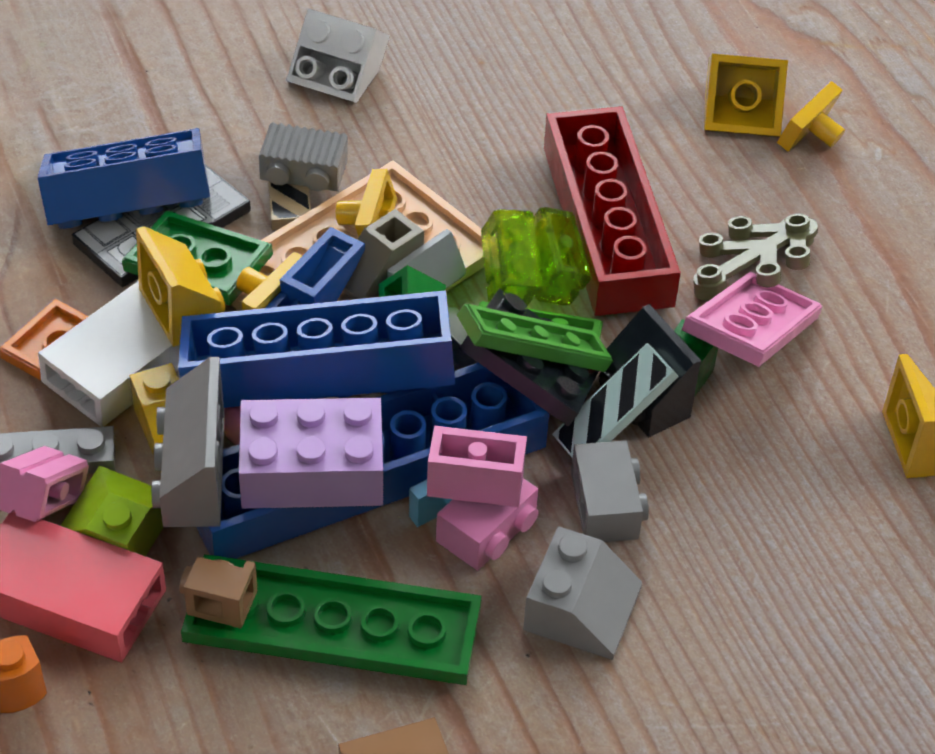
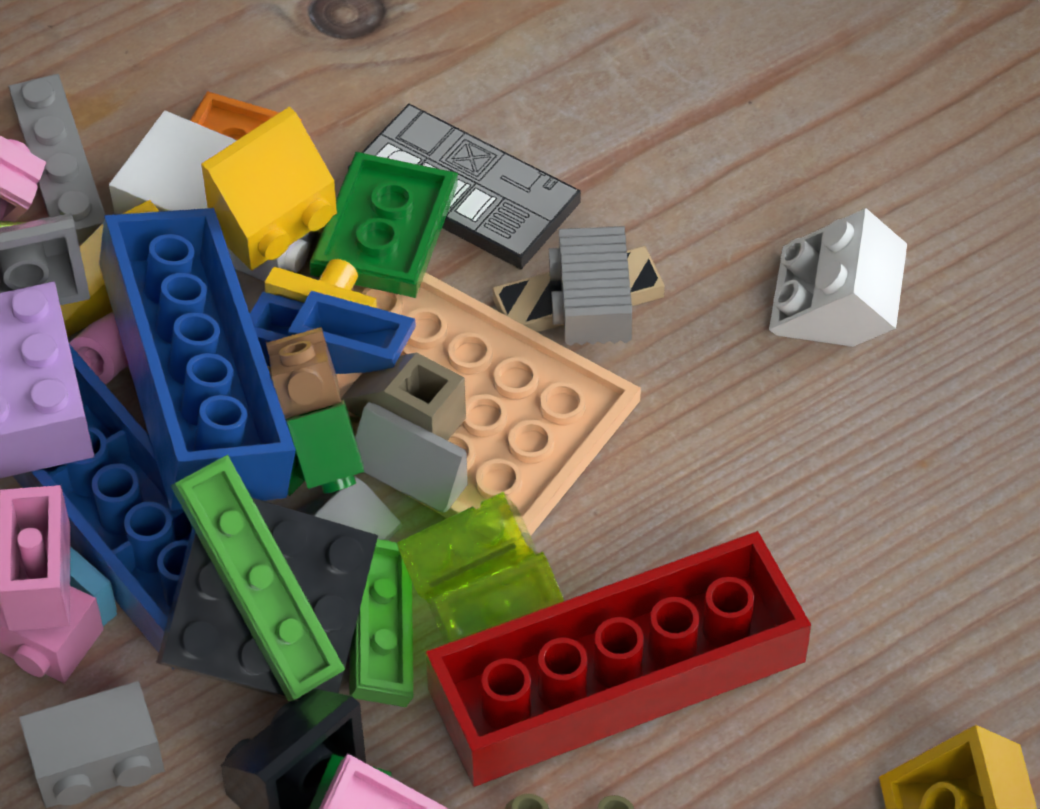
camera: 80 degrees right, 5 degrees up
(123, 178) = (510, 117): blue slope -> none
(359, 282) = (303, 373): none -> medium nougat brick
(377, 202) = (507, 374): yellow tile -> none
(618, 400) = (220, 718): light aqua tile -> none

